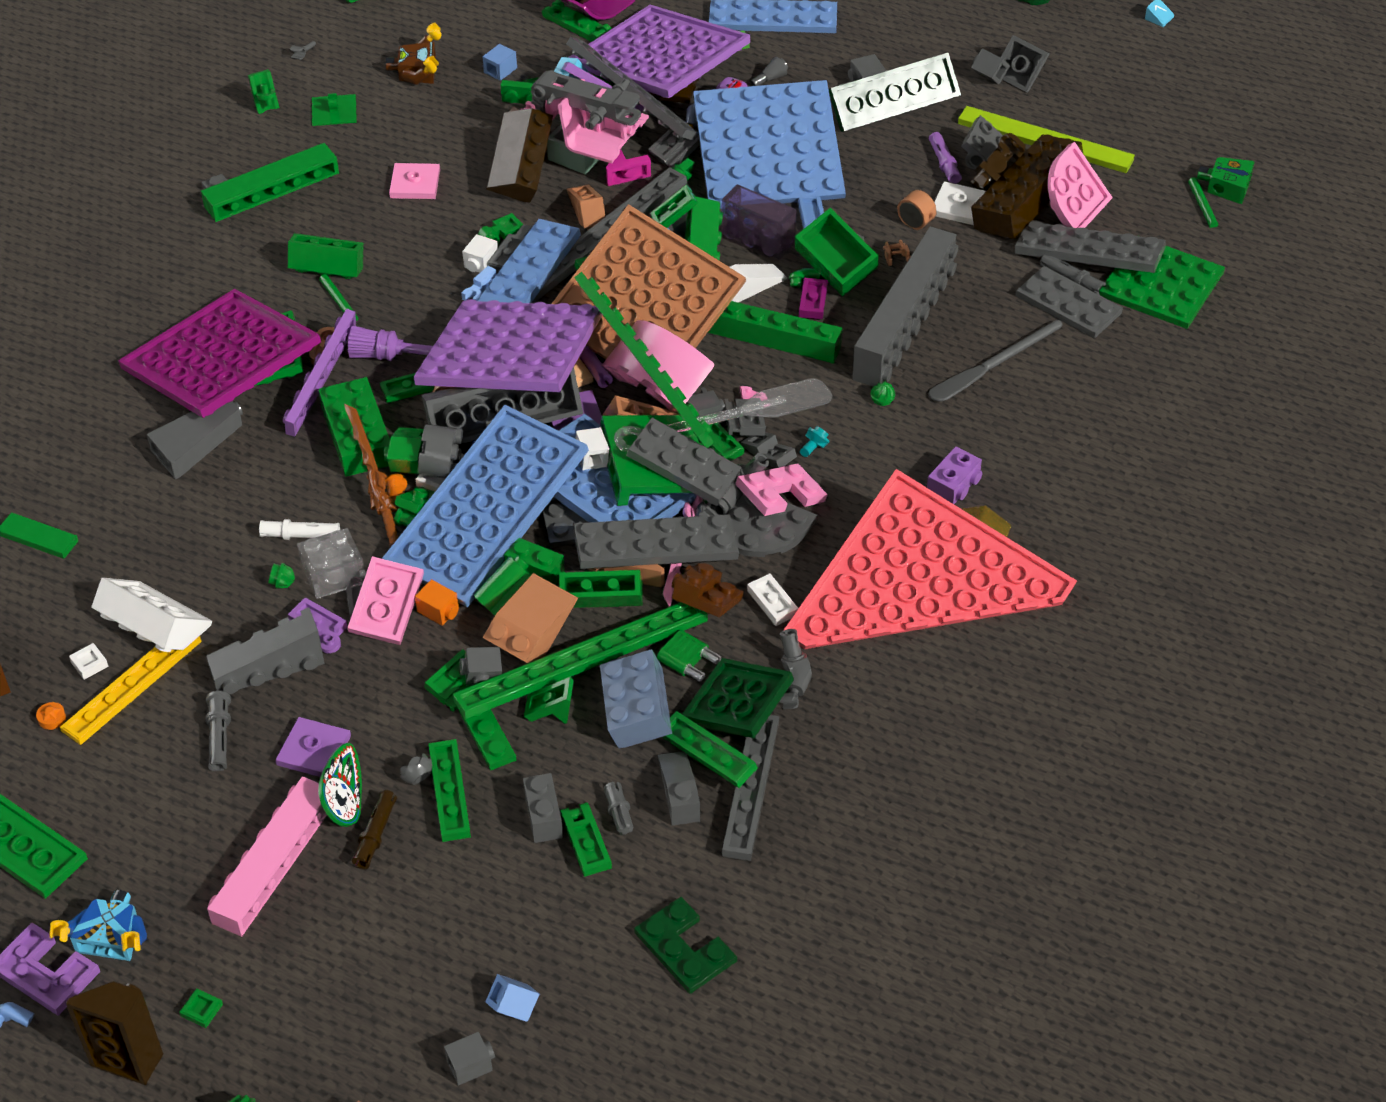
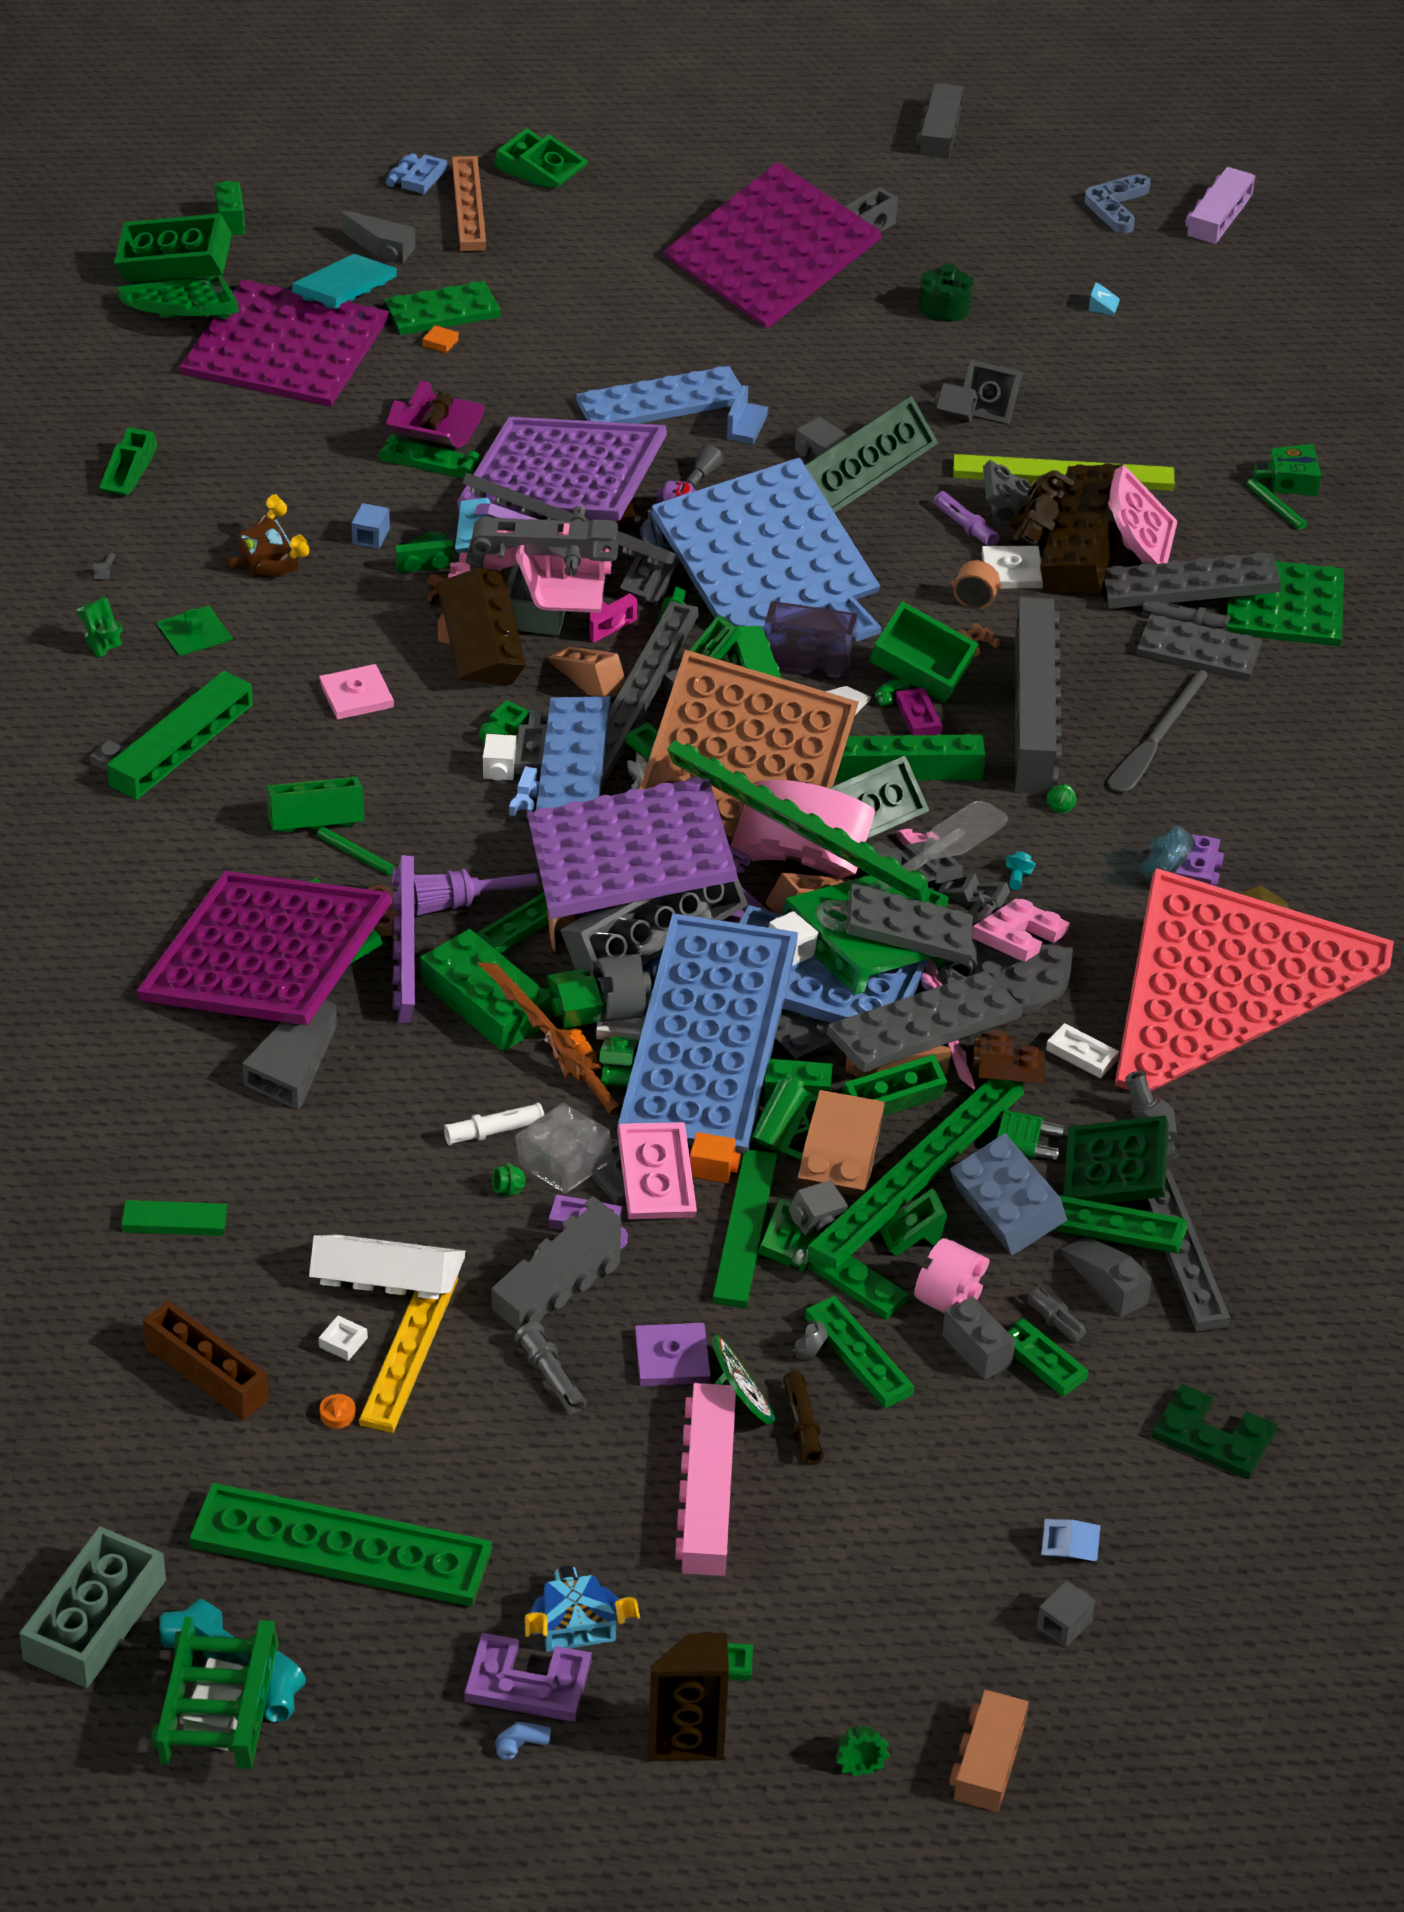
camera: 25 degrees left, 5 degrees down
(442, 649) = (745, 1229): none -> green tile
(547, 751) = (950, 1276): none -> bright pink brick
(736, 357) = (891, 793): none -> plate
(823, 43) = (745, 419): none -> medium blue panel
(935, 457) = (1167, 852): none -> clear light blue tile

